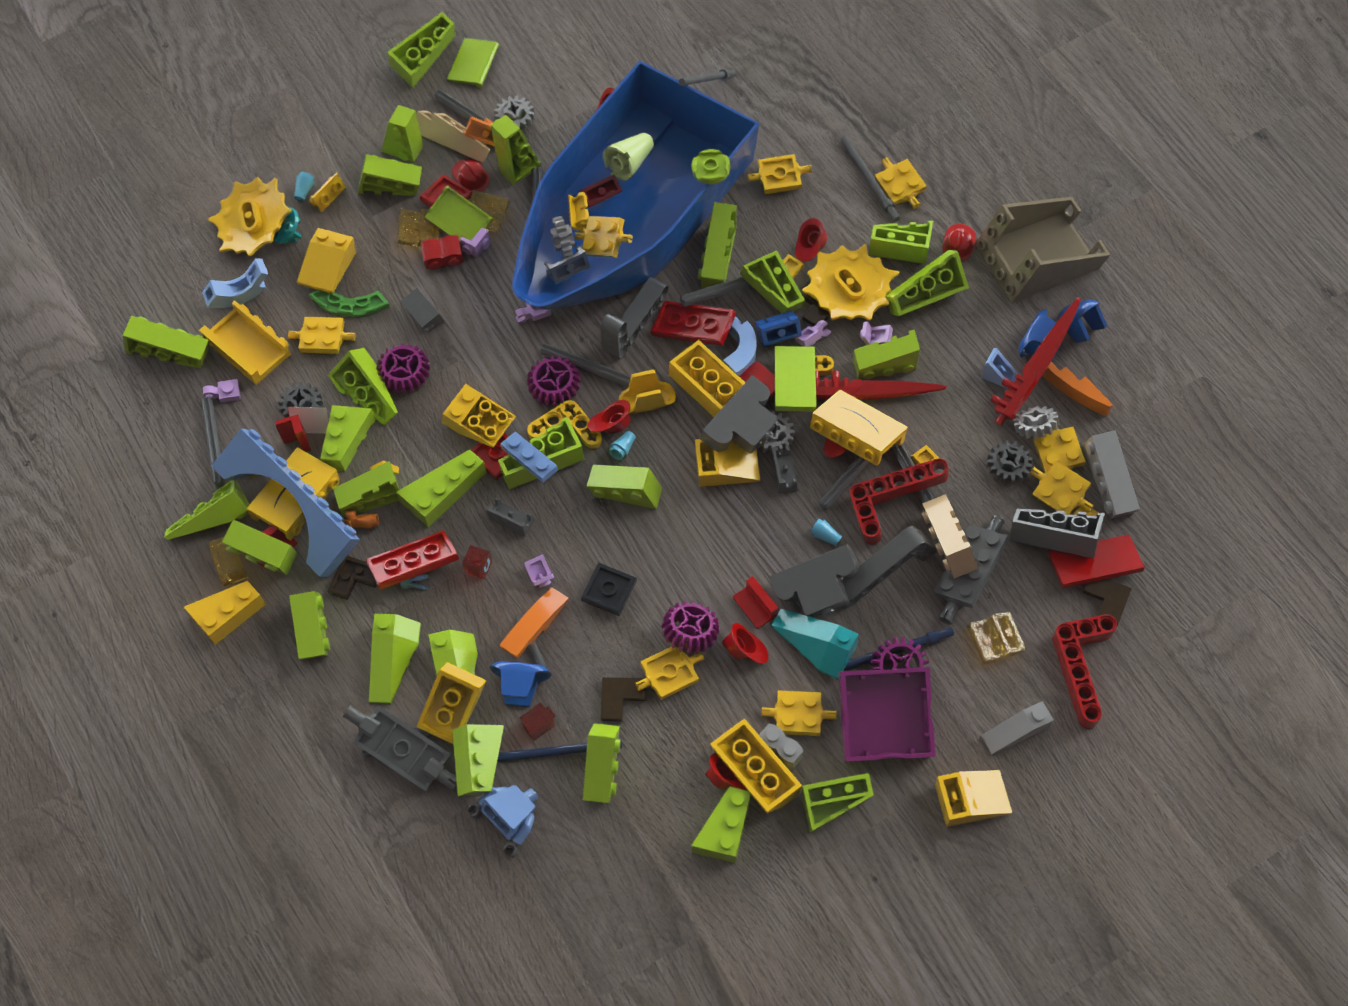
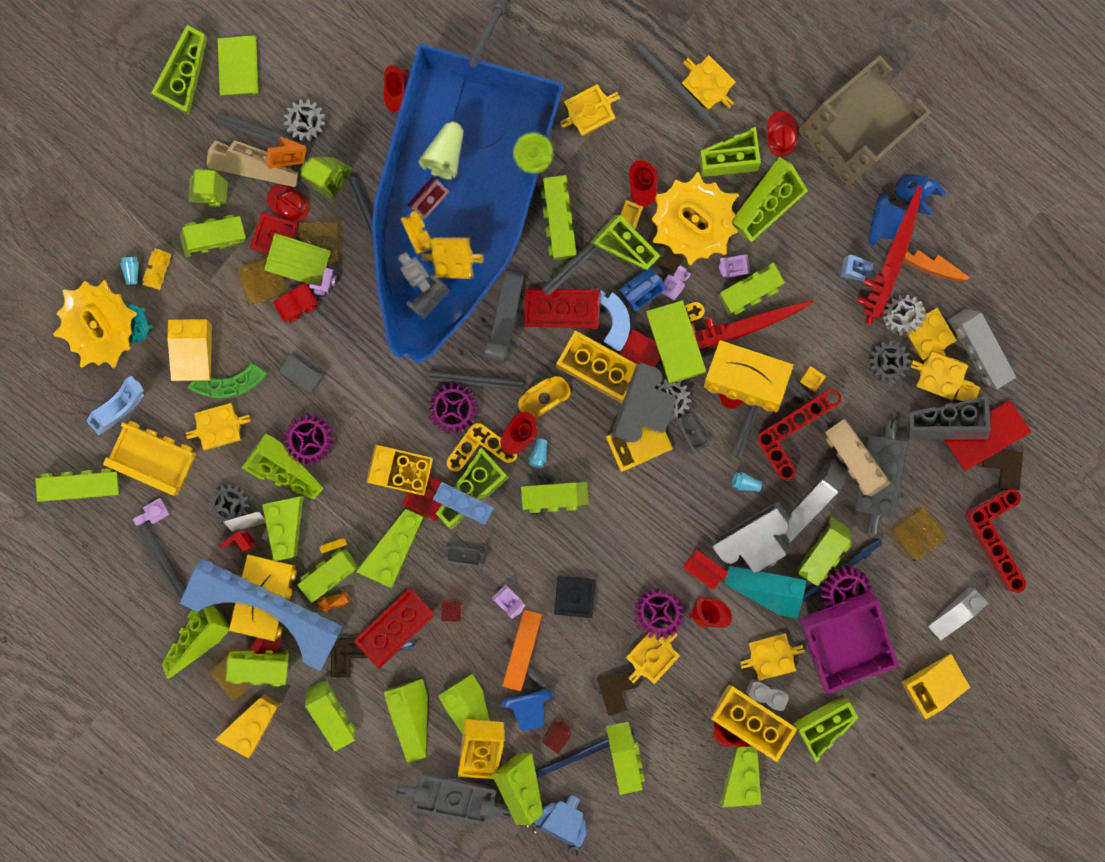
camera: 25 degrees left, 25 degrees up
(888, 619) = (825, 552): none -> lime wedge

